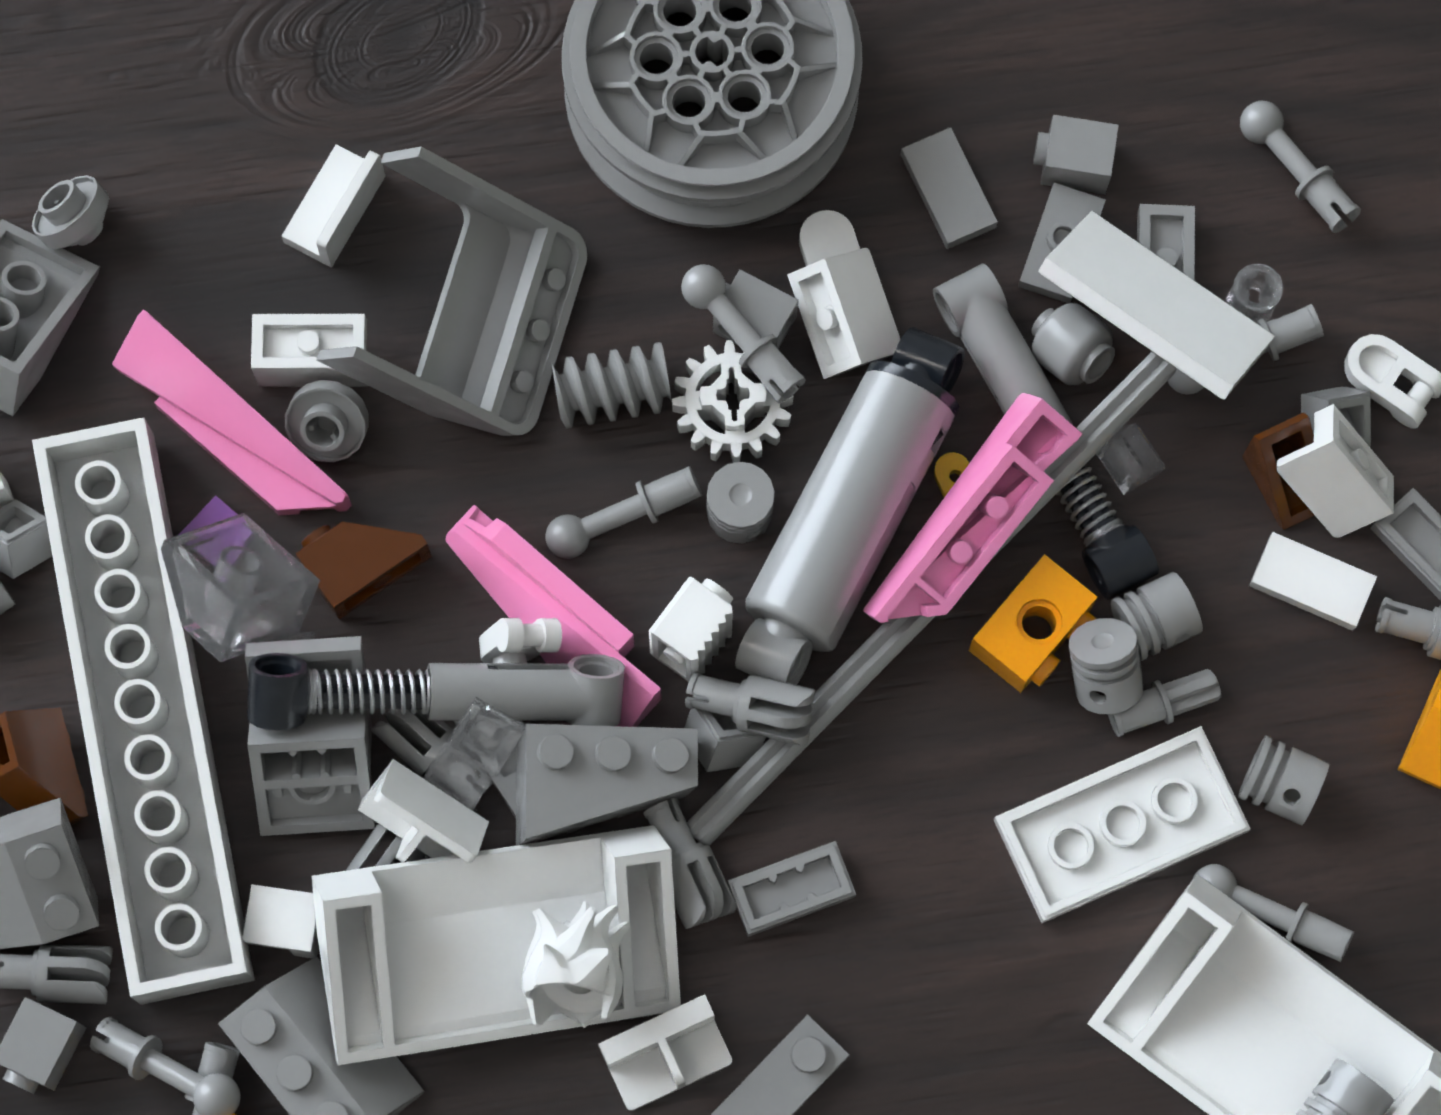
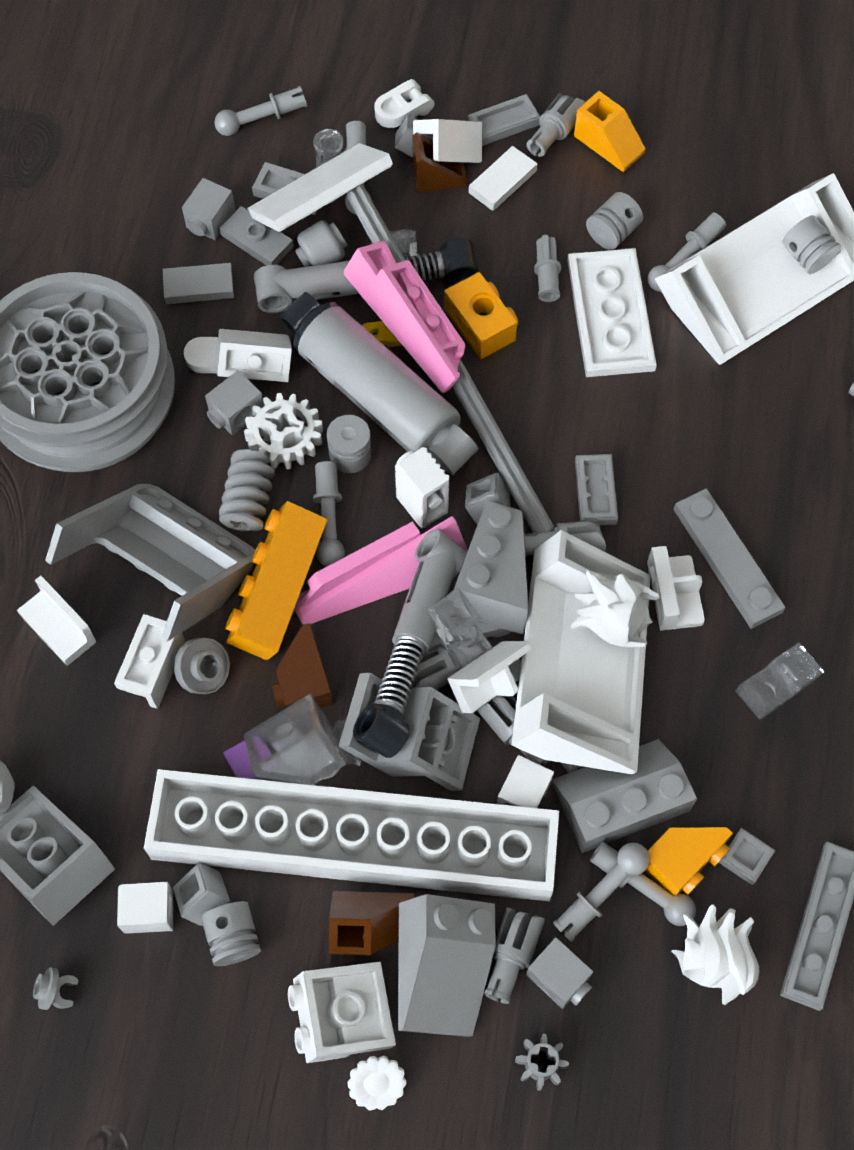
camera: 70 degrees left, 10 degrees down
(224, 422) = (174, 730): bright pink wedge -> none
(484, 475) = (276, 580): none -> light orange brick
(518, 642) = (390, 588): white plate -> none
(705, 289) = (210, 414): light grey pin -> none
(756, 705) = (482, 464): light grey arm -> none
(1106, 661) = (517, 281): light grey piece -> none
(1159, 613) = (498, 252): light grey piece -> none

